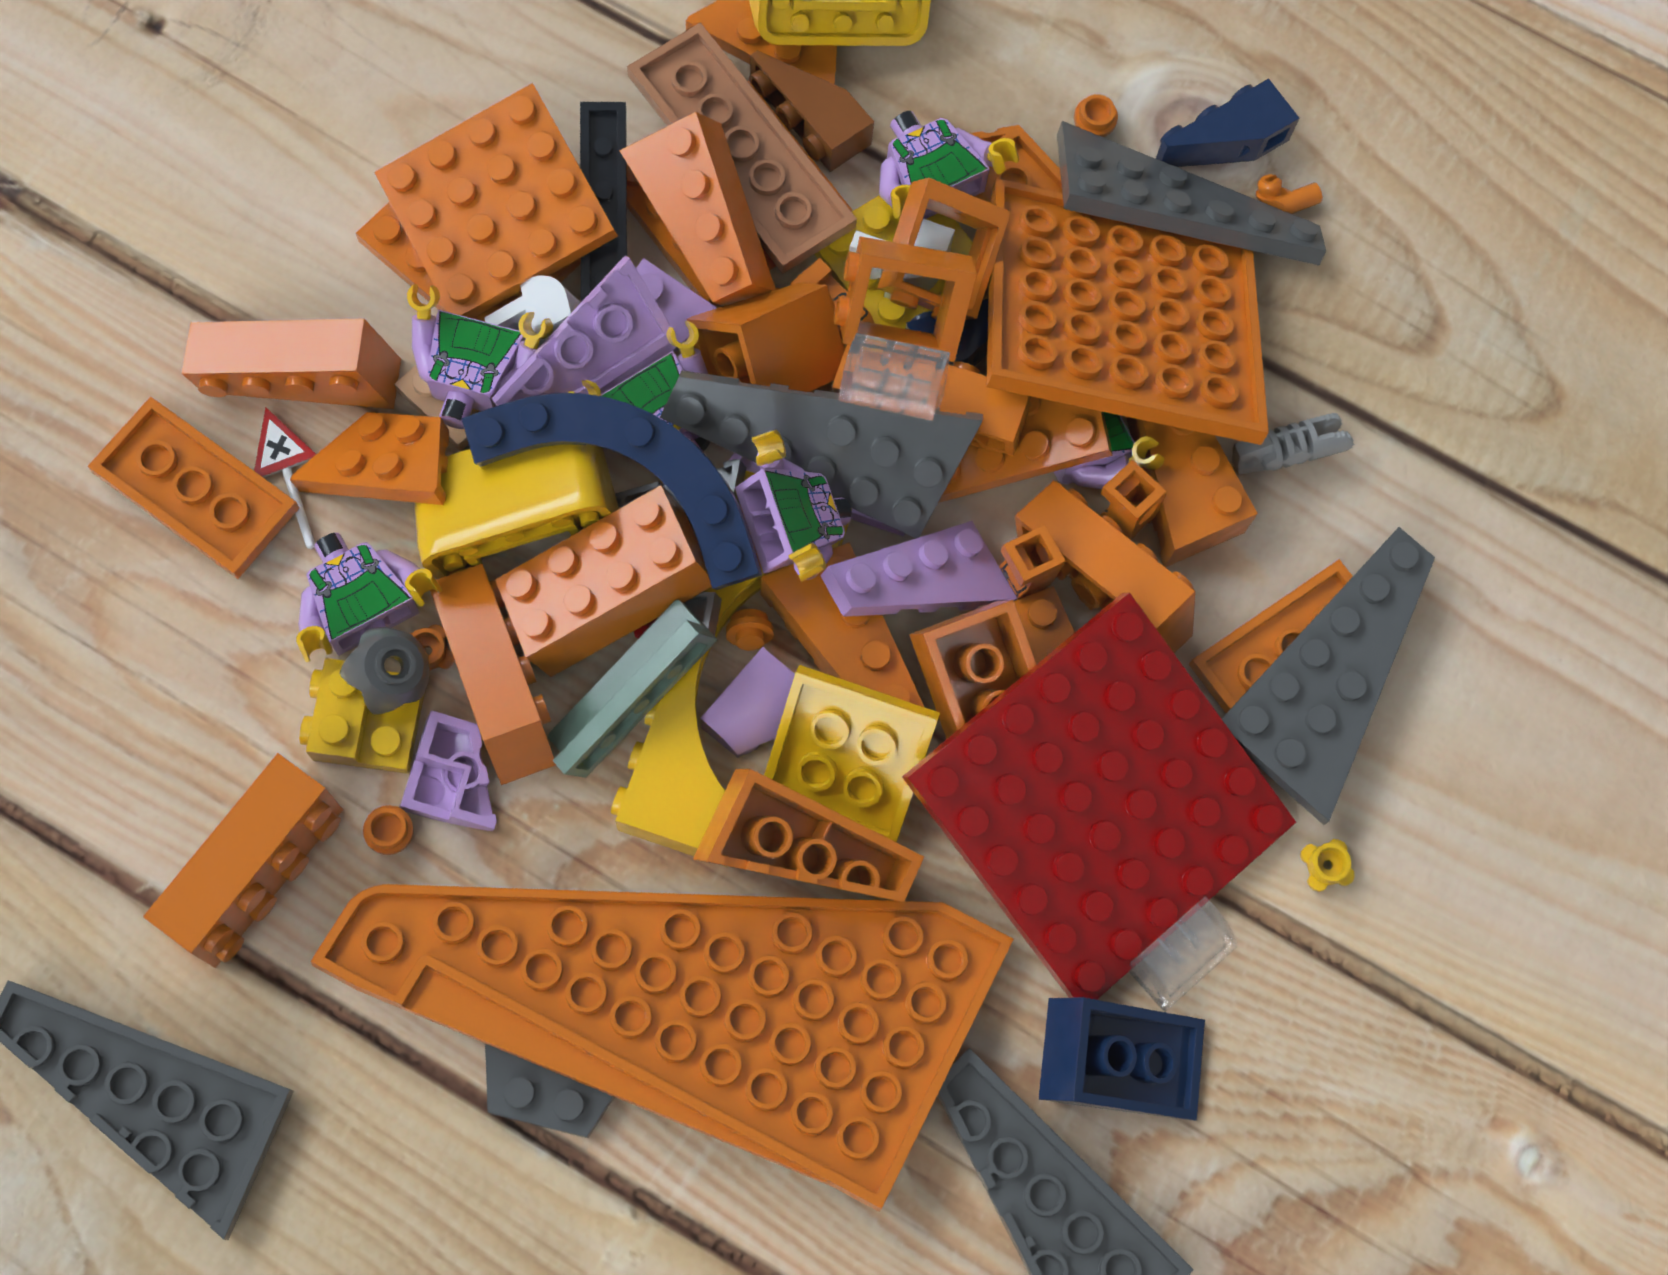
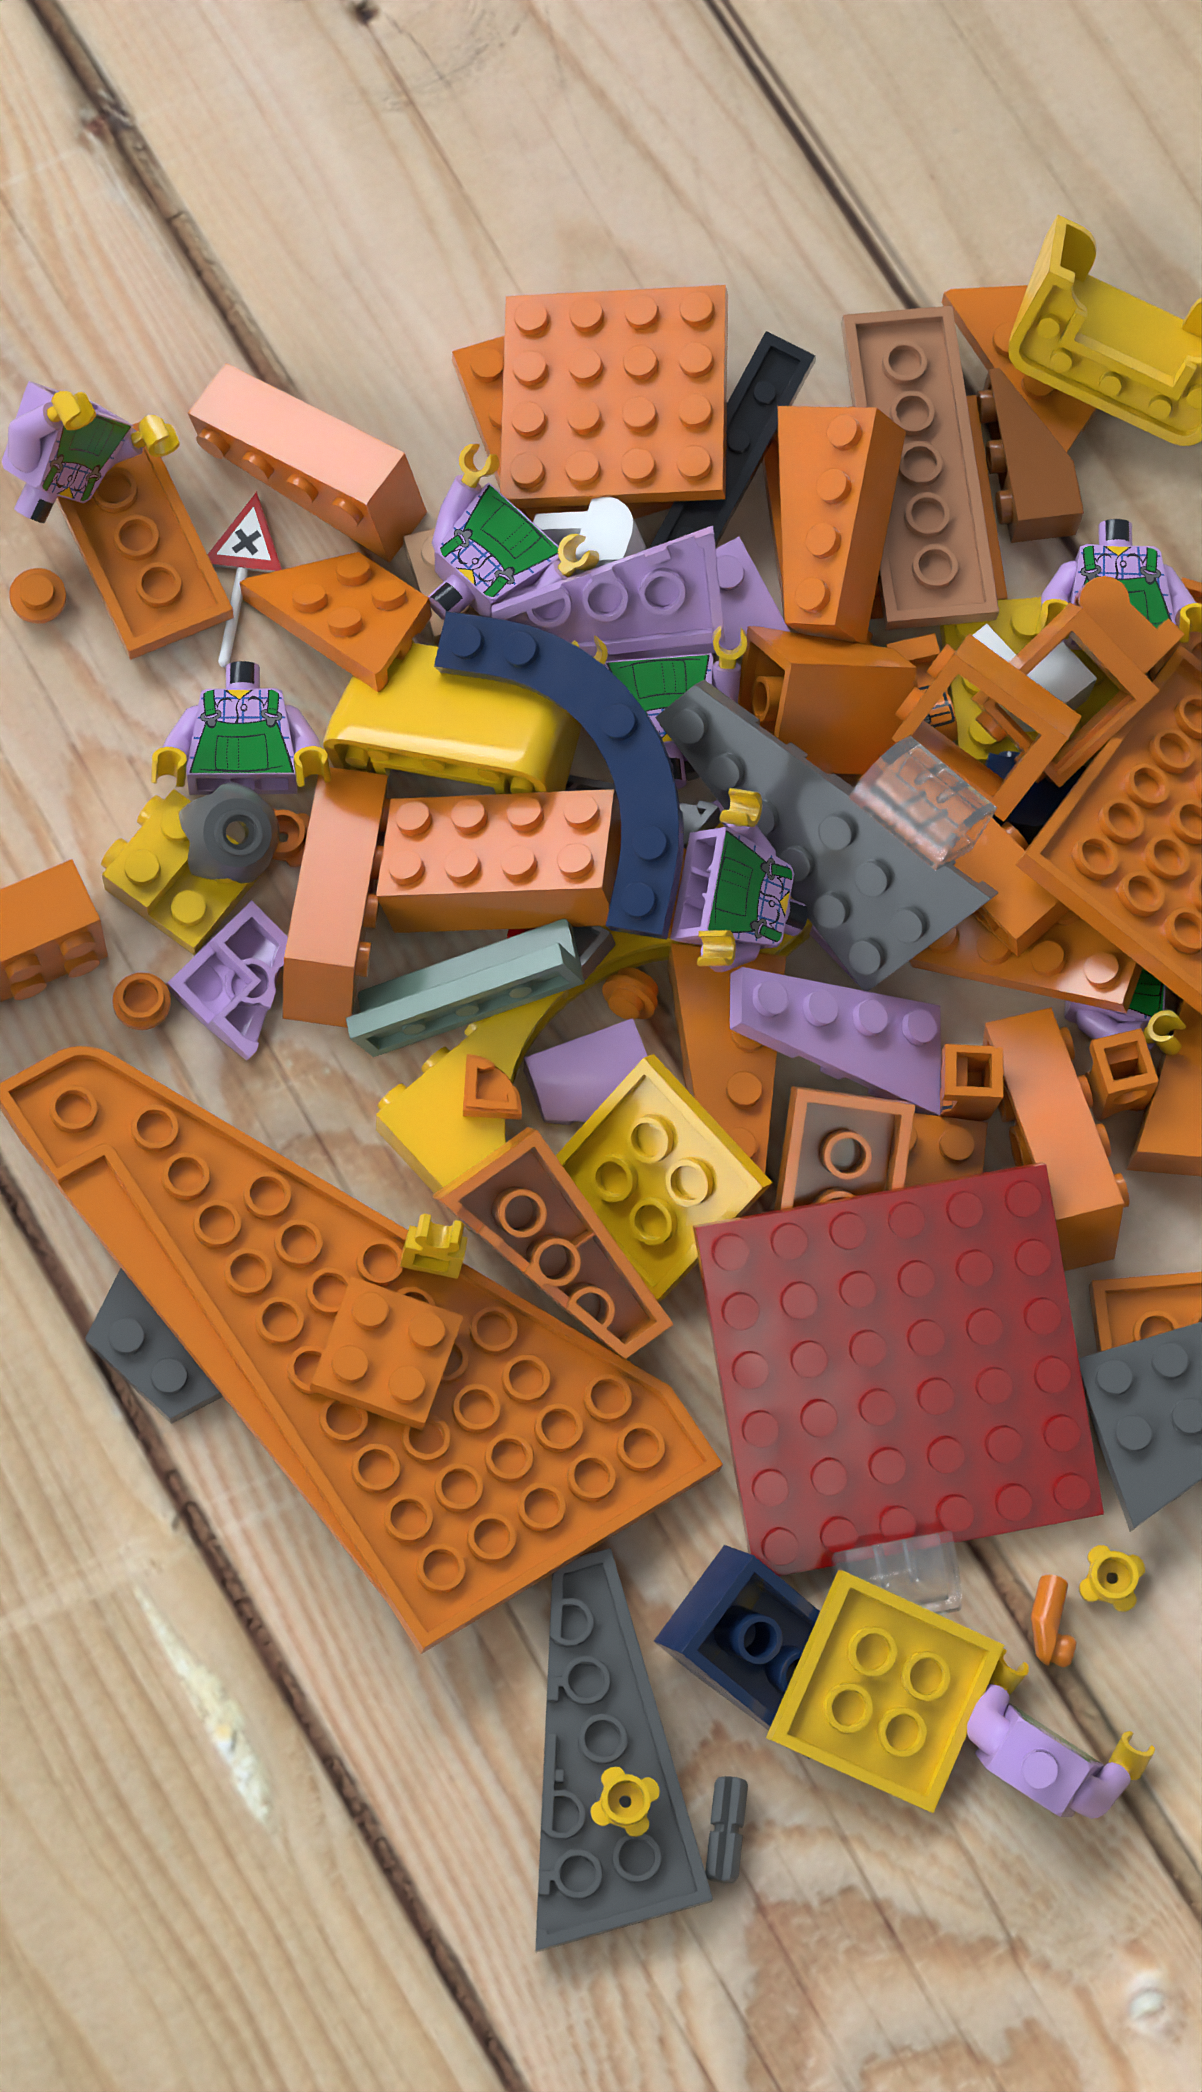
camera: 30 degrees right, 0 degrees up
(104, 440) = (68, 445): none -> torso
(140, 567) = (37, 595): none -> orange plate
(690, 757) = (489, 1091): none -> orange tile
(718, 897) = (435, 1247): none -> yellow plate
(726, 997) = (386, 1353): none -> orange plate
(941, 167) = (1111, 609): none -> orange leg
(1099, 1221) = (640, 1791): none -> yellow plate
(1173, 1219) = (724, 1841): none -> dark grey piece
(1226, 1042) = (885, 1691): none -> yellow plate
(1302, 921) = (1046, 1620): none -> orange arm
(1357, 1027) = (1041, 1760): none -> lavender torso

